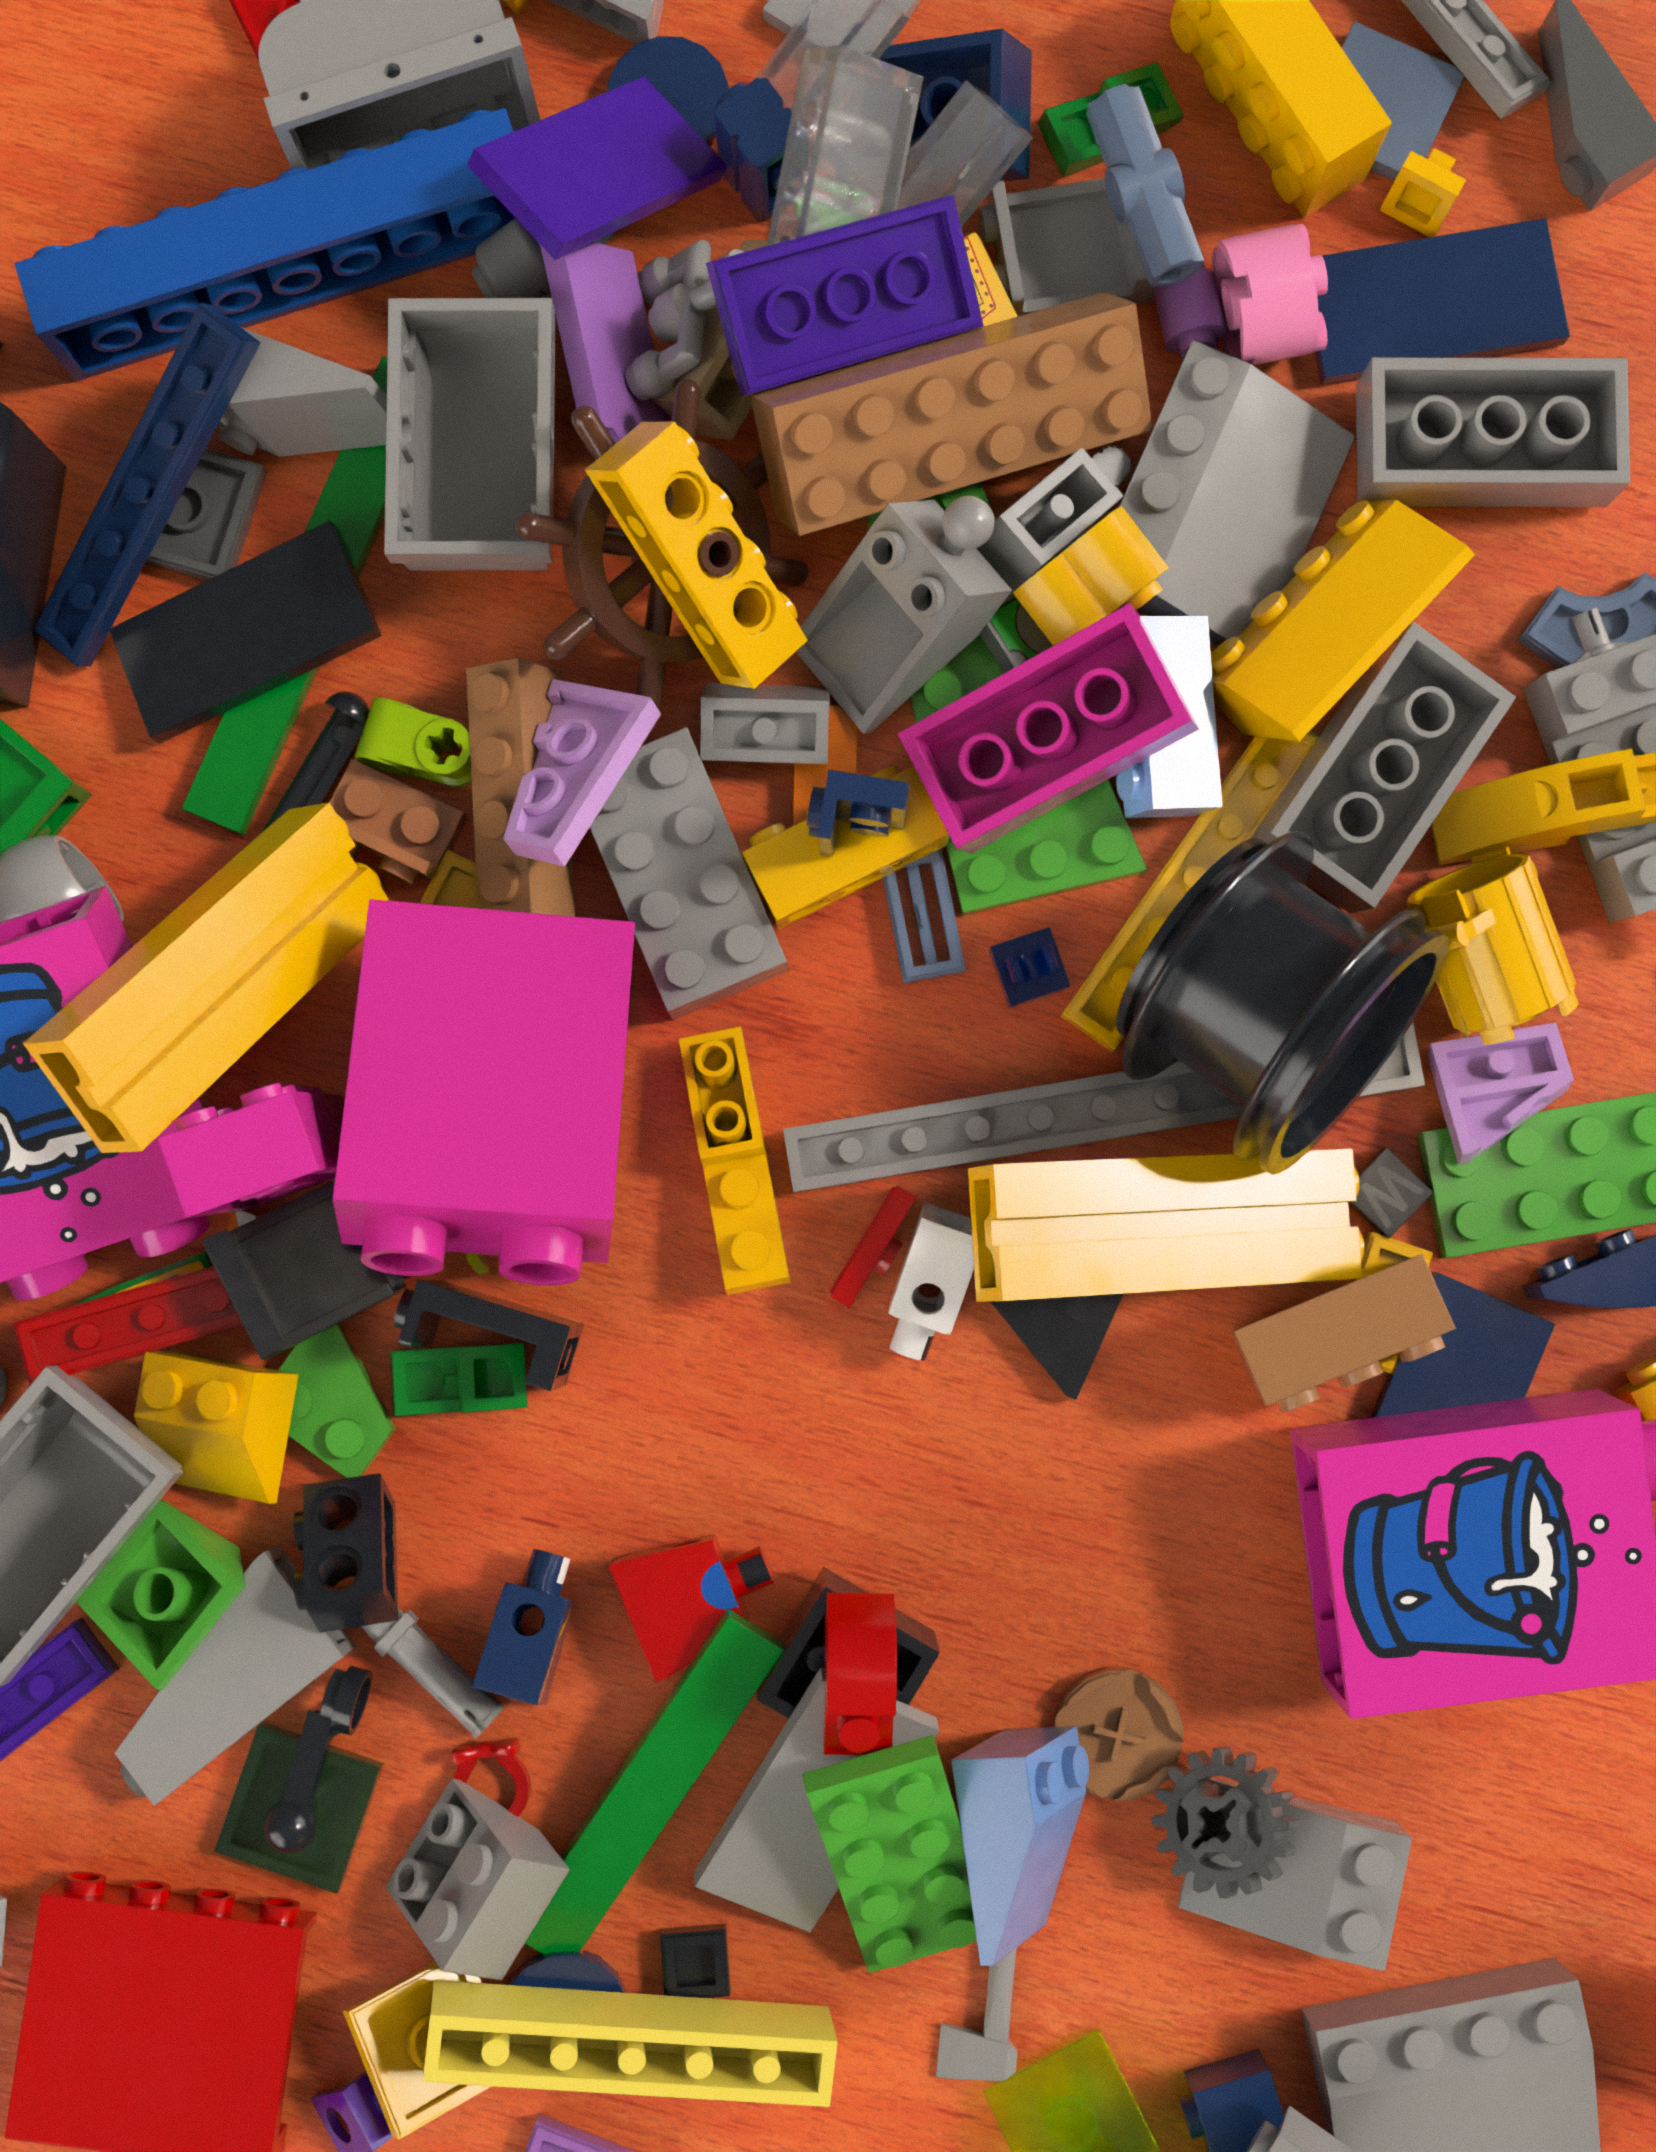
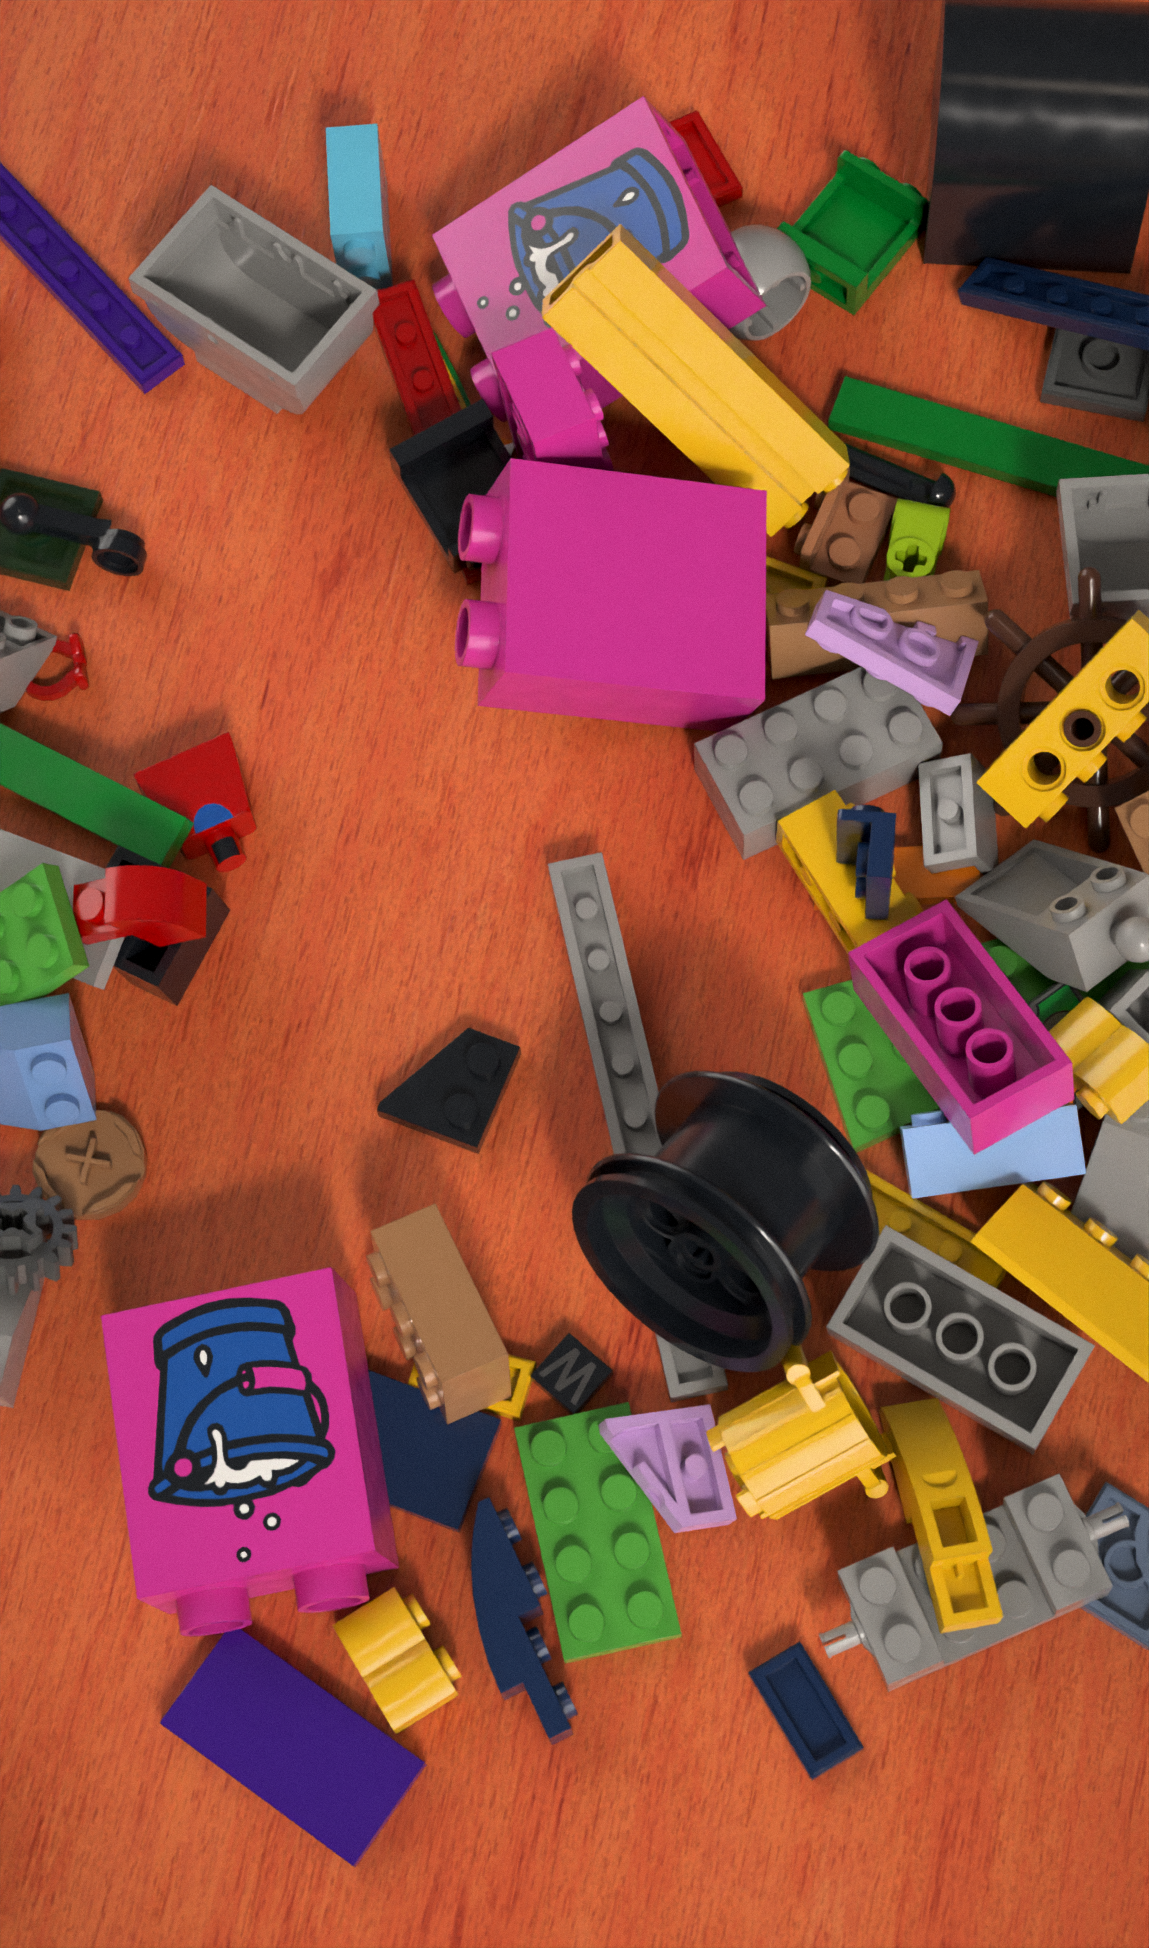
camera: 90 degrees right, 15 degrees down
(164, 1591) = (207, 408): bright green slope -> none
(218, 1421) = (342, 436): yellow slope -> none
(231, 1682) = (143, 473): light grey slope -> none
(244, 632) = (997, 408): black tile -> none
(335, 1405) = (358, 525): bright green wing -> none
(359, 1550) = (237, 538): black brick -> none
(435, 1671) = (170, 589): light grey pin -> none
(458, 1379) = (381, 619): green slope -> none
(519, 1663) = (169, 676): dark blue torso -> none
(555, 1336) = (412, 675): black panel -> none
(734, 1161) = (573, 820): yellow slope -> none
(876, 1248) = (503, 933): red plate -> none
(932, 968) = (796, 985): sand blue tile -> none
(939, 1256) = (482, 978): white torso -> none
(1029, 967) = (759, 1051): clear blue tile -> none
(1161, 1225) = (527, 1156): brick -> none

